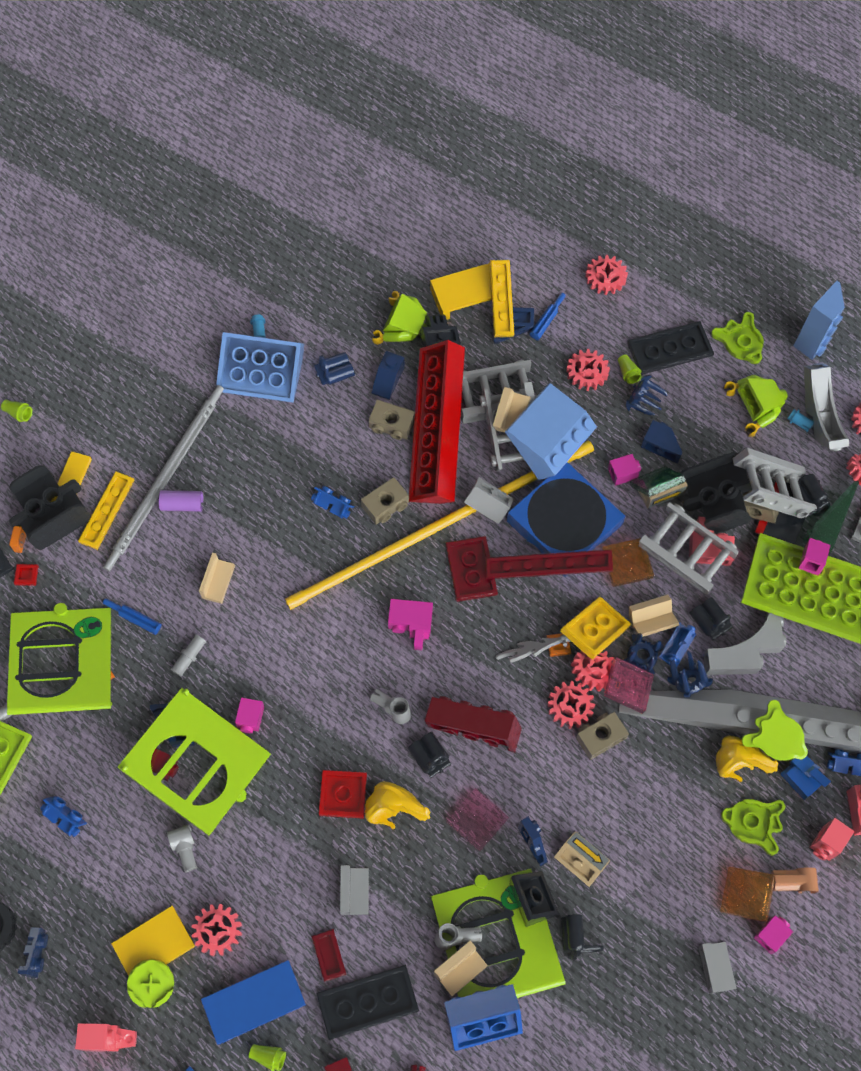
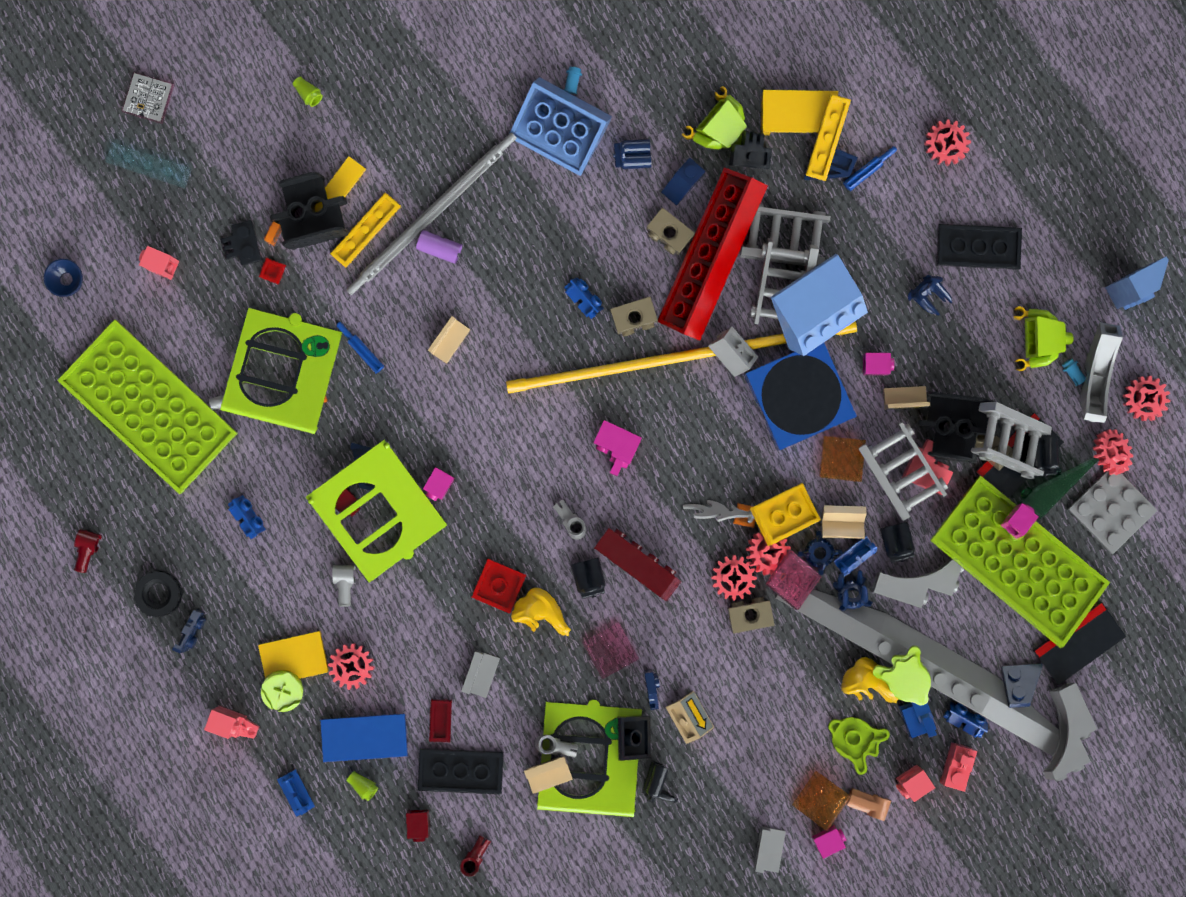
camera: 20 degrees right, 20 degrees up
(188, 655) = (400, 406): light grey pin -> none
(469, 568) = (692, 412): dark red tile -> none
(483, 1017) = (553, 820): blue slope -> none
(509, 408) = (786, 271): tan panel -> none
(549, 564) = (764, 440): dark red tile -> none
(588, 377) = (881, 234): coral gear -> none
(629, 369) = (926, 260): lime cone -> none
(657, 481) = (903, 389): tile -> none
(662, 441) = (926, 347): dark blue slope -> none
(741, 339) = (1055, 263): lime tile -> none

